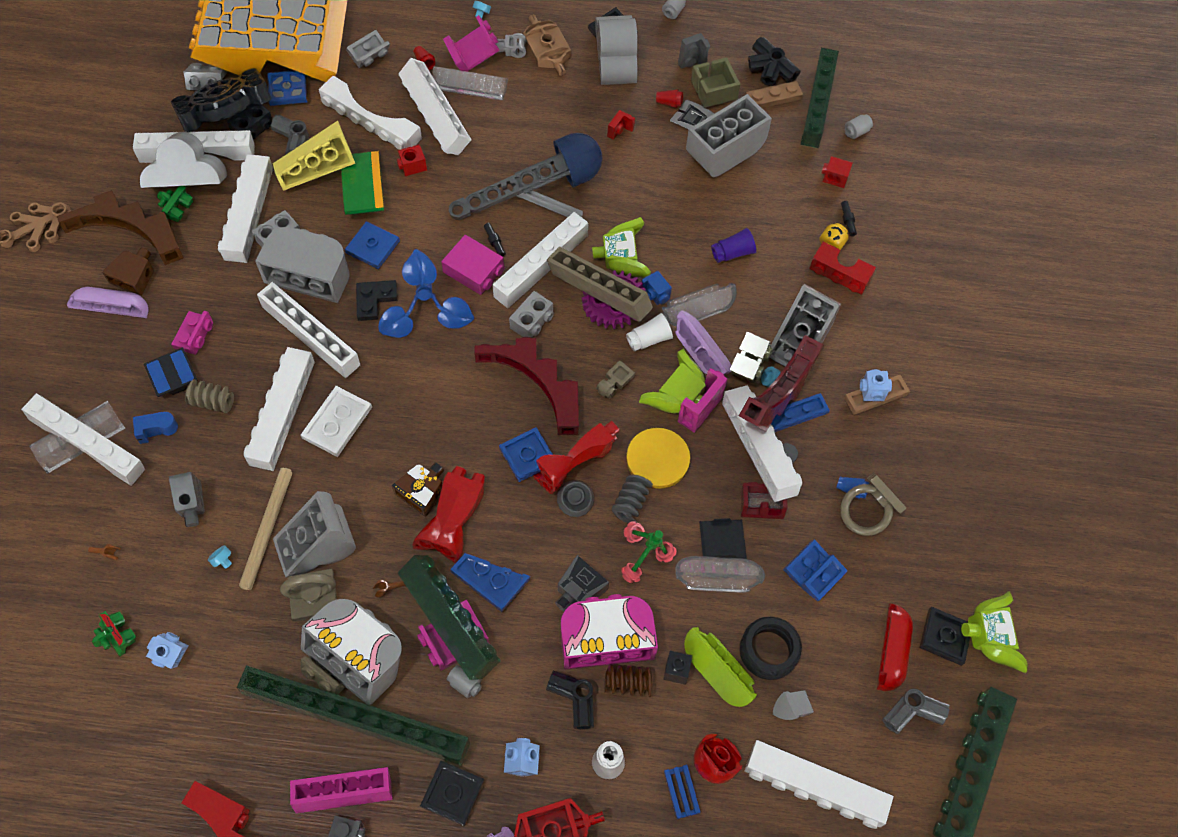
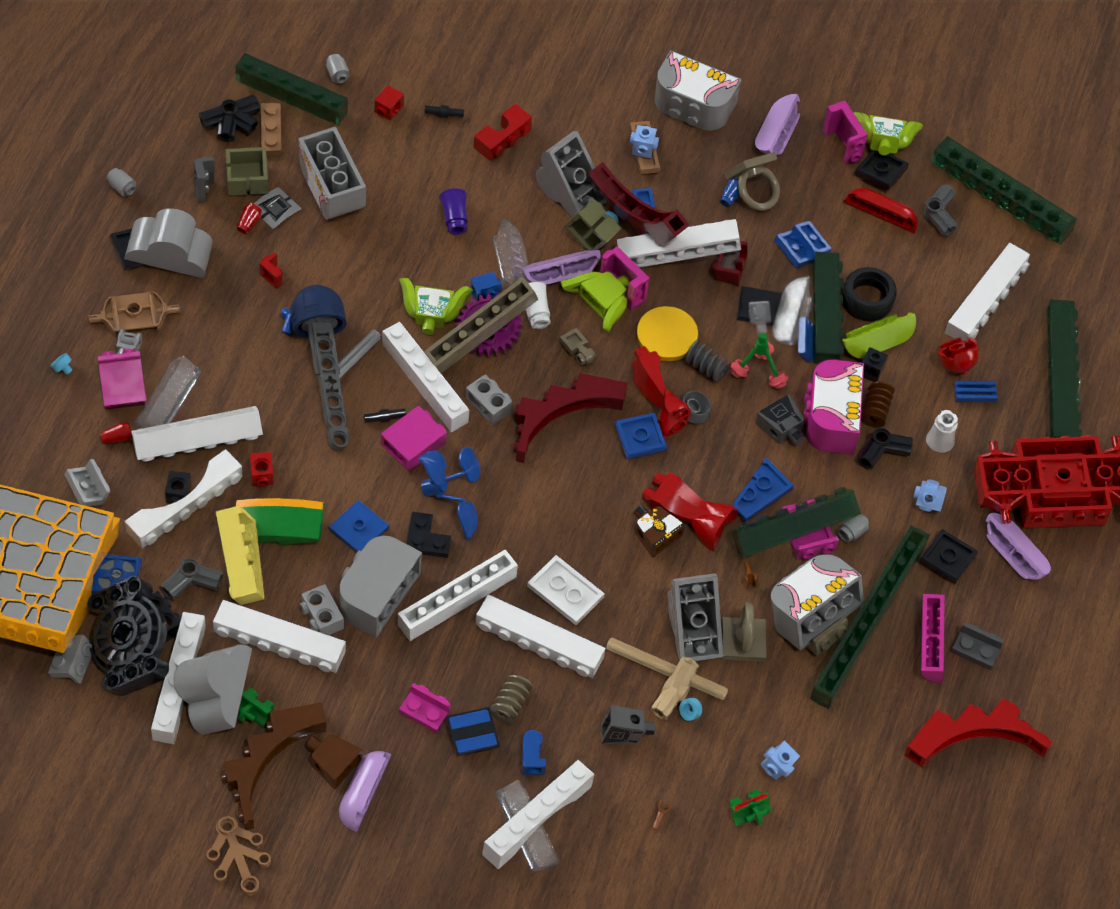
camera: 80 degrees left, 5 degrees down
(236, 537) = (675, 688): none -> tan piece
(379, 105) = (177, 480): none -> black brick
(689, 594) = (806, 339): none -> blue tile
(708, 540) = (760, 315): none -> clear plate
(738, 606) = (827, 306): none -> clear green brick
(792, 705) = (921, 293): light grey tile -> none
(835, 235) = (466, 128): yellow head -> none
(956, 517) = (778, 125): none -> lavender brick
(961, 424) = (695, 92): none -> light grey brick
(986, 572) = (843, 121): none -> dark pink panel

